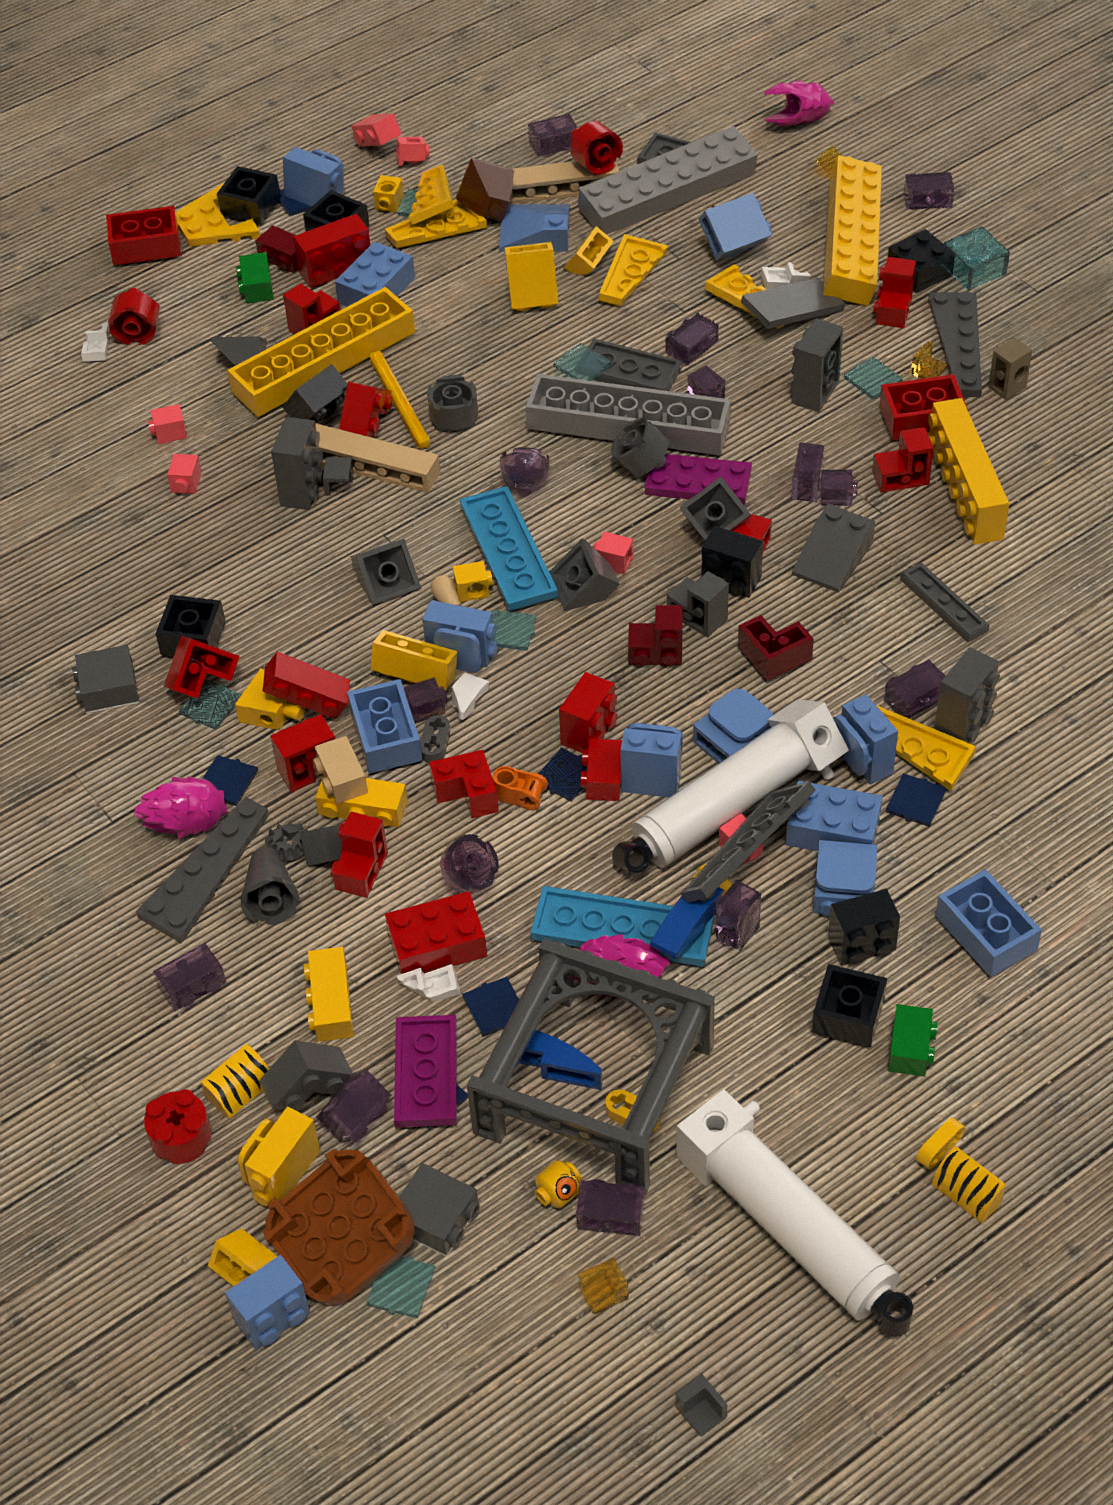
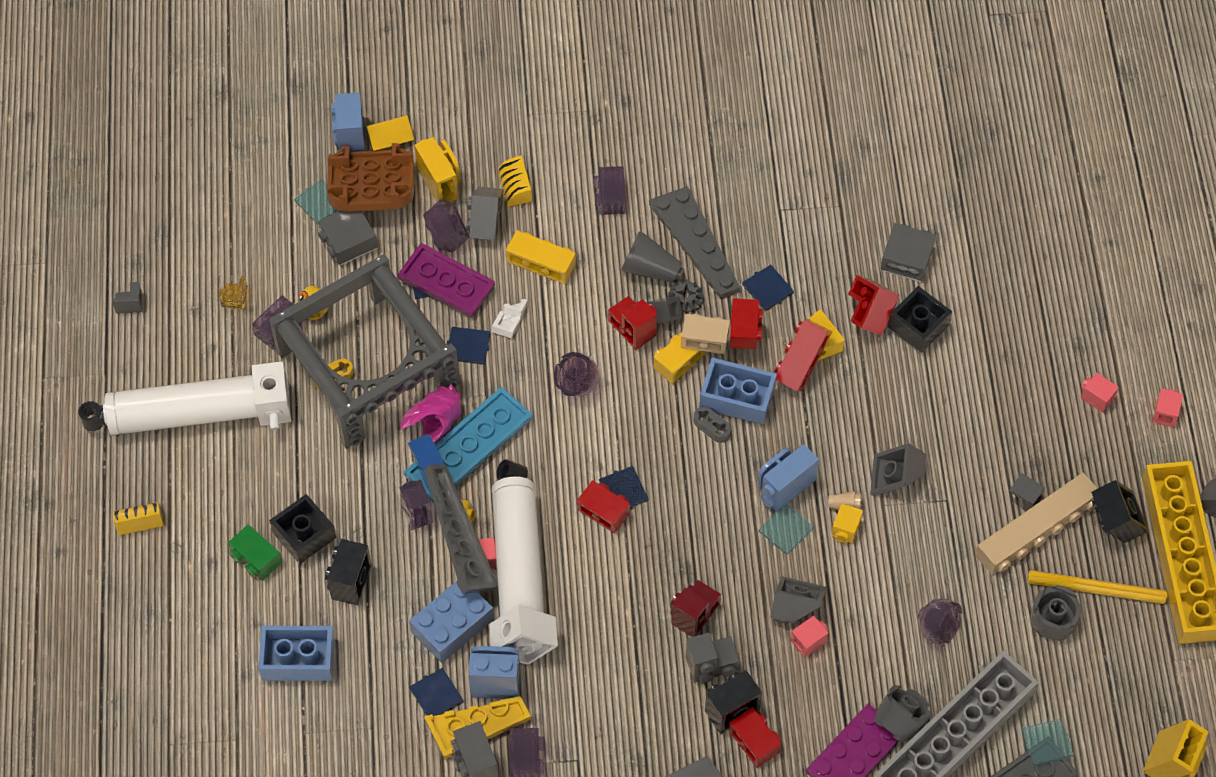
camera: 120 degrees right, 10 degrees up
(177, 1126) = (503, 135): red brick -> none
(182, 807) = (750, 238): dark pink head -> none
(211, 706) = (841, 309): clear light blue piece -> none
(297, 463) = (1040, 453): dark grey brick -> none
(363, 407) = (1093, 544): red brick -> none
(413, 659) = (789, 437): yellow brick -> none
(425, 699) = (749, 432): brick -> none
(436, 934) = (539, 333): red brick -> none
(465, 777) = (654, 421): red brick -> none
(466, 692) = (739, 464): white slope -> none
(508, 548) = (868, 569): dark azure plate -> none
(518, 788) = (624, 450): orange piece -> none
(561, 1062) = (389, 354): blue slope -> none
(587, 712) = (653, 517): red brick -> none
(651, 759) = (579, 526): medium blue brick -> none
(714, 507) = (790, 716): dark grey slope -> none
(731, 724) = (576, 610): medium blue brick -> none
(774, 651) = (631, 674): dark red brick -> none
(843, 873) = (399, 594): medium blue brick -> none
(940, 1143) = (176, 521): yellow beam -> none

